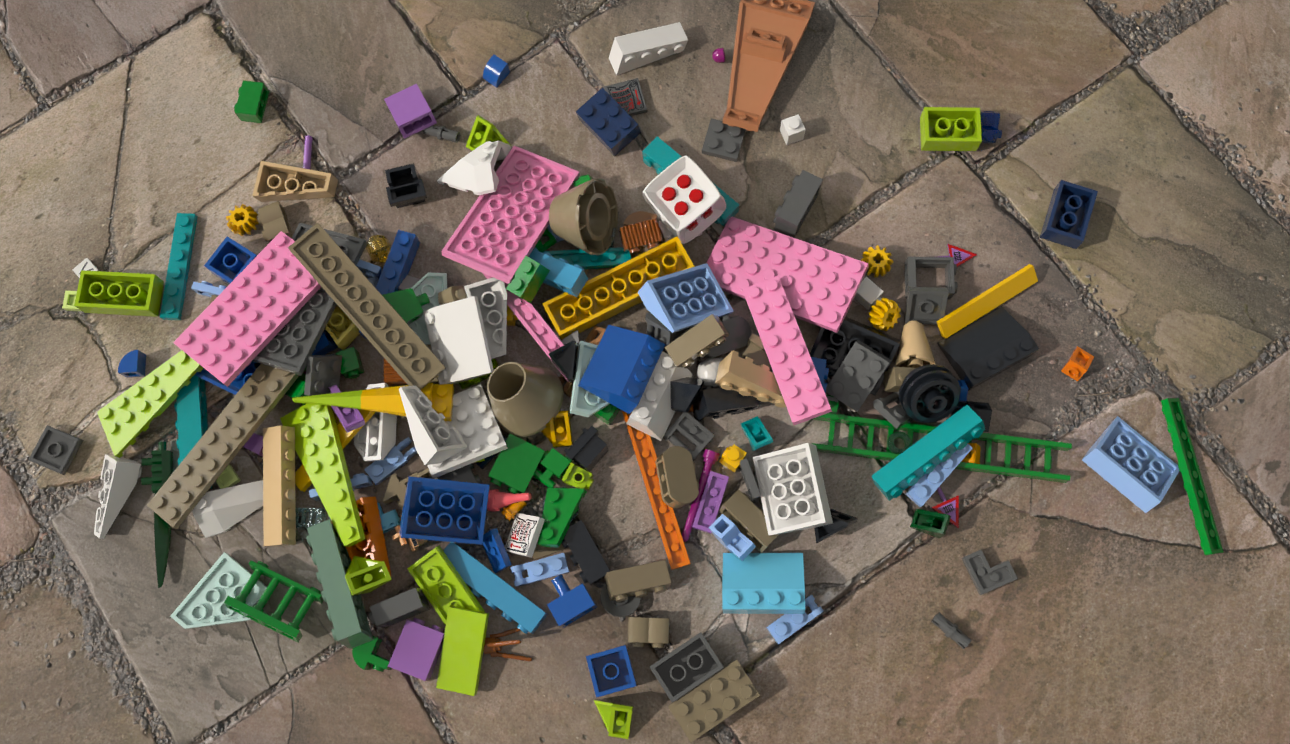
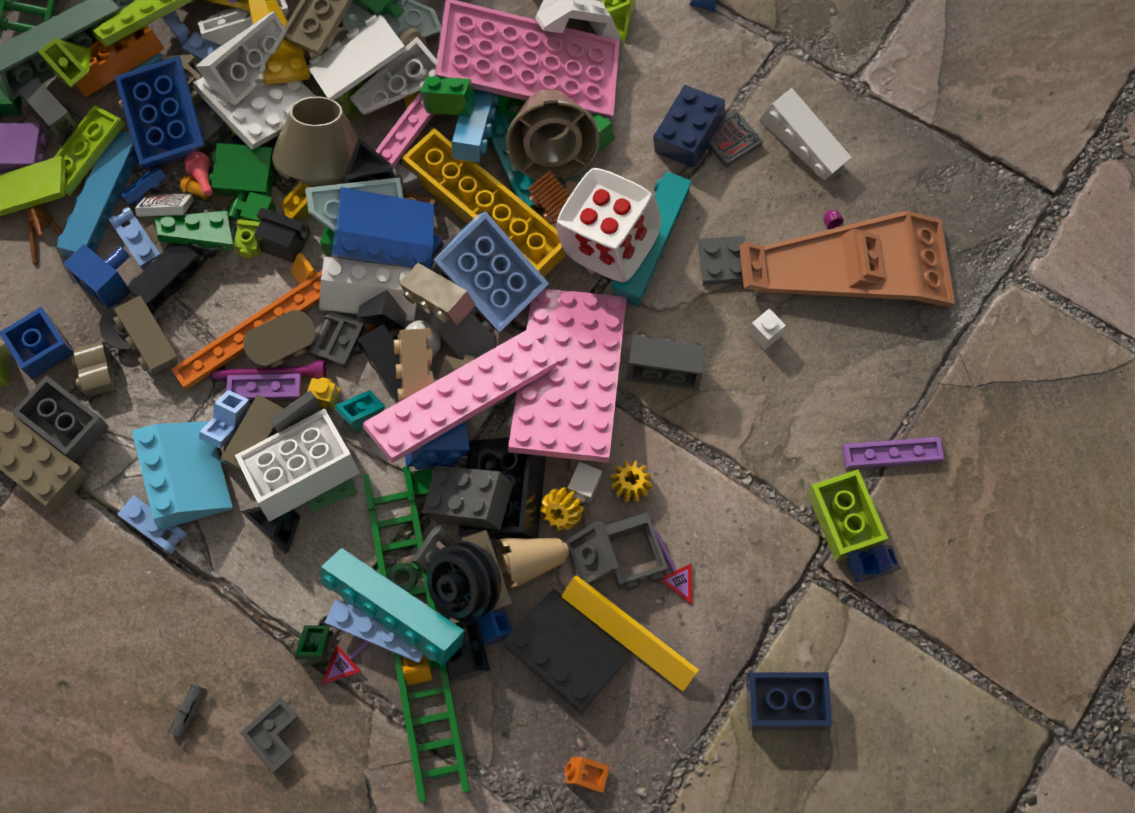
camera: 65 degrees right, 5 degrees down
(621, 444) = (302, 269): none -> light orange slope
(910, 85) = (893, 453): none -> medium lavender tile

